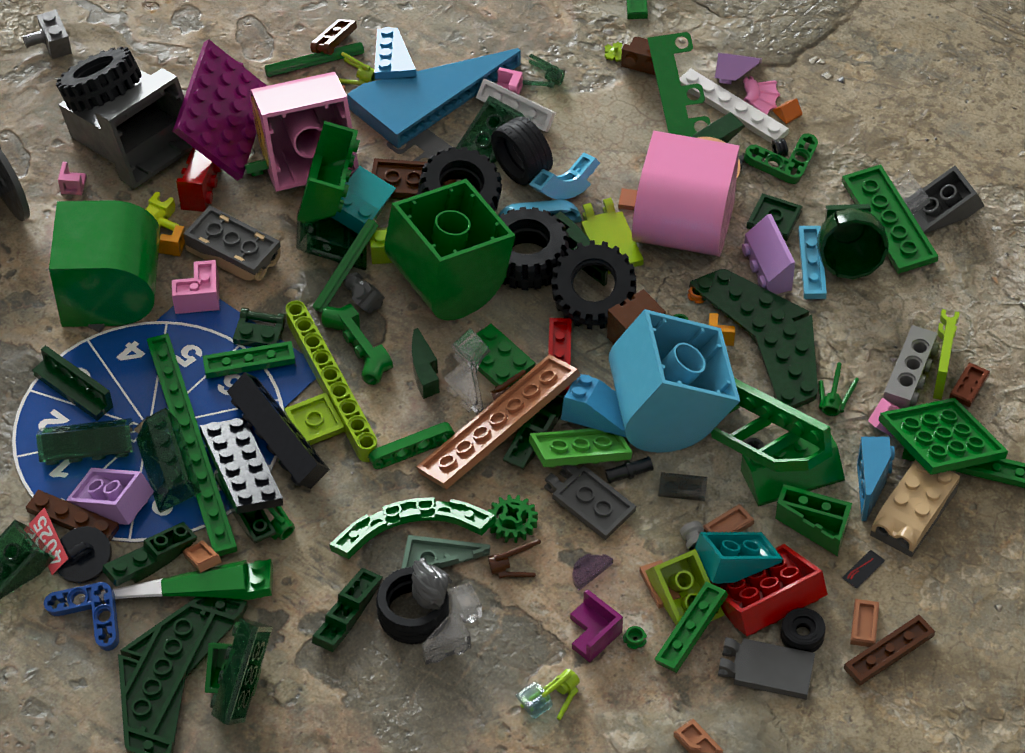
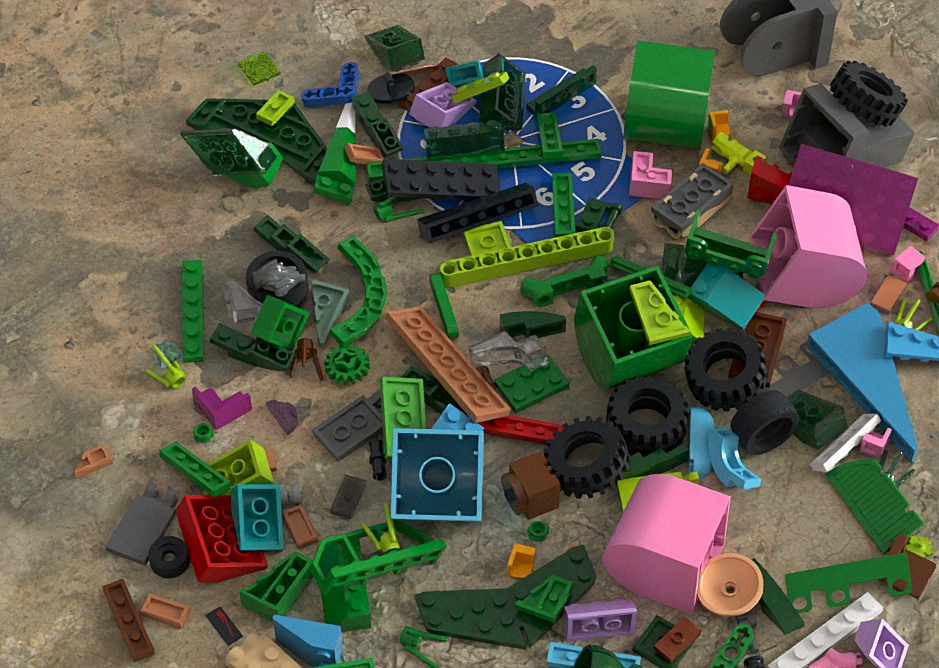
camera: 100 degrees right, 0 degrees up
(55, 709) = (259, 68): none -> clear neon green piece
(57, 474) = (464, 73): none -> teal slope
(93, 446) = (479, 86): none -> lime wing
(140, 660) = (275, 108): none -> lime plate
(153, 378) = (549, 136): none -> green plate
(283, 71) = (906, 262): none -> bright pink panel
(454, 202) = (656, 316): none -> lime wing
(461, 690) = (192, 311): none -> green plate
(483, 579) = (279, 322): none -> green slope
(512, 610) = (252, 351): none -> dark green slope
(581, 77) = (874, 501): none -> green piece
(751, 418) = (387, 541): none -> lime plant
(765, 294) = (547, 599): none -> green wing
(773, 201) = (677, 640): none -> copper plate

